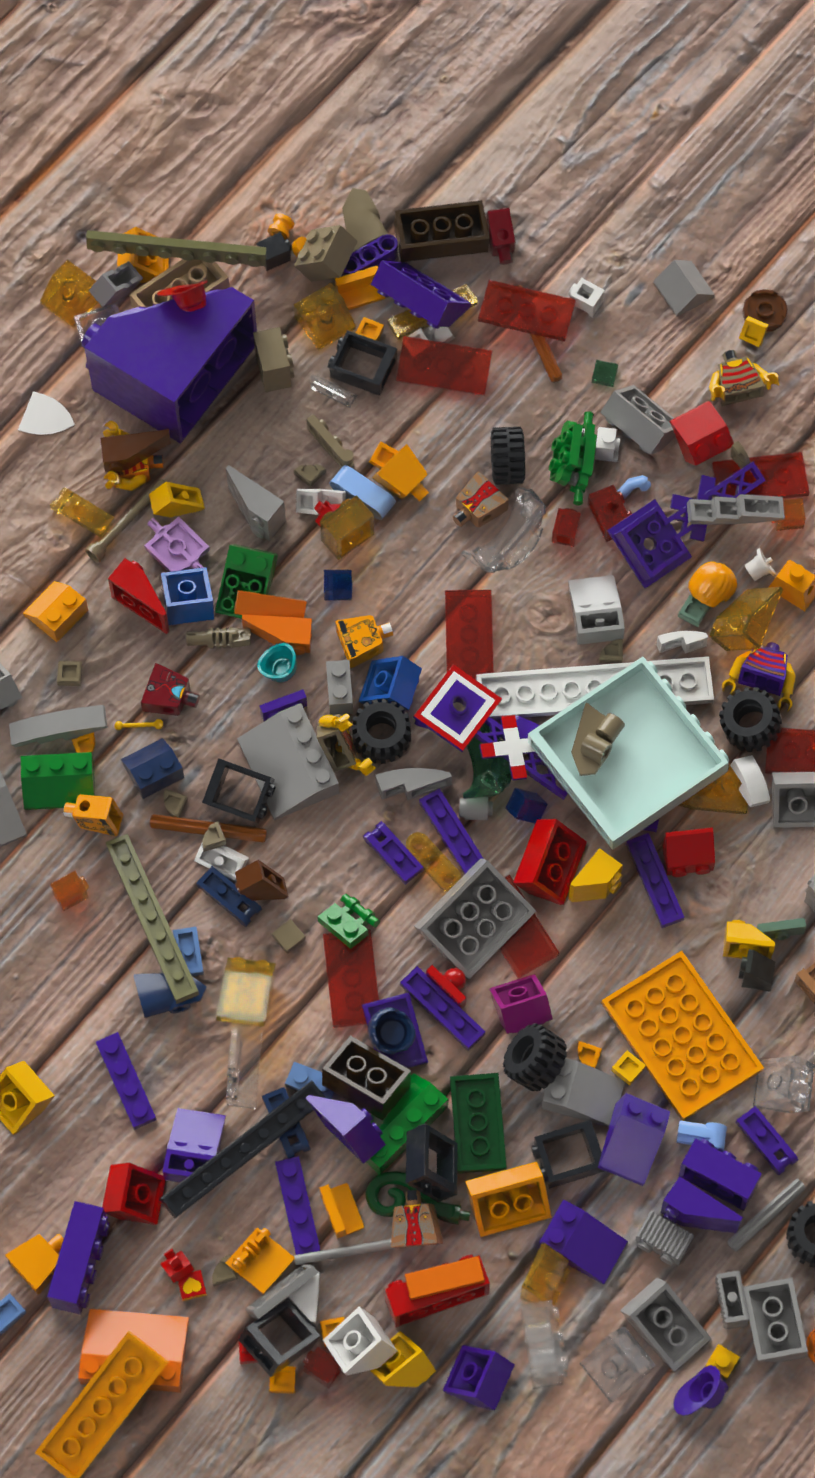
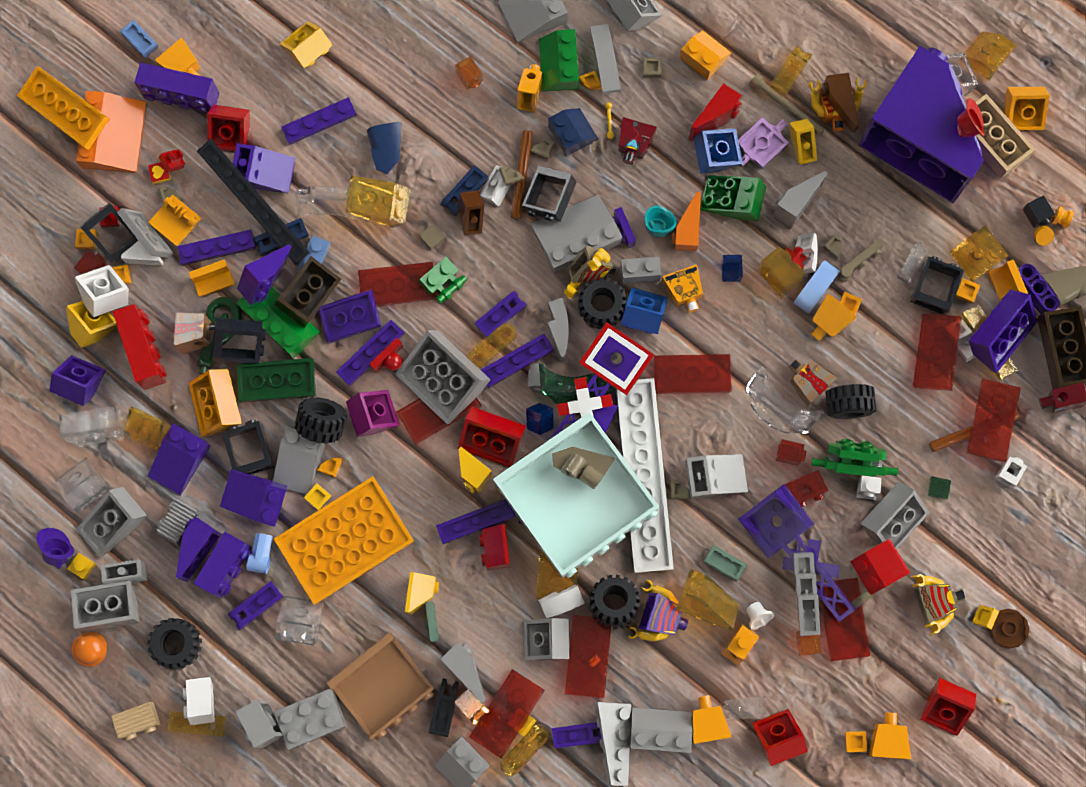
camera: 90 degrees right, 10 degrees up
(45, 416) = (878, 40): white sticker -> none
(115, 284) = (994, 82): light grey brick -> none
(152, 919) = (442, 131): olive plate -> none
(176, 248) = (1027, 134): olive plate -> none
(189, 946) = (419, 161): medium blue plate -> none
(220, 637) = (683, 178): dark tan hinge -> none
(268, 605) = (709, 214): orange tile -> none
(273, 359) = (933, 210): dark tan brick -> none
(325, 253) = (1036, 250): dark tan brick -> none
(342, 1252) = (179, 278): light grey bar -> none
(391, 1031) = (343, 308): dark blue piece -> none
(444, 1278) = (138, 347): orange tile -> none
(633, 483) = (835, 512): light blue arm -> none
(683, 286) = (1028, 557): light grey slope -> none
(687, 639) = (688, 552): white slope -> none
(713, 584) = (739, 573): light orange piece -> none
(757, 971) = (393, 600): pearl dark grey slope -> none
(766, 1215) = (196, 604): light grey axle -> none

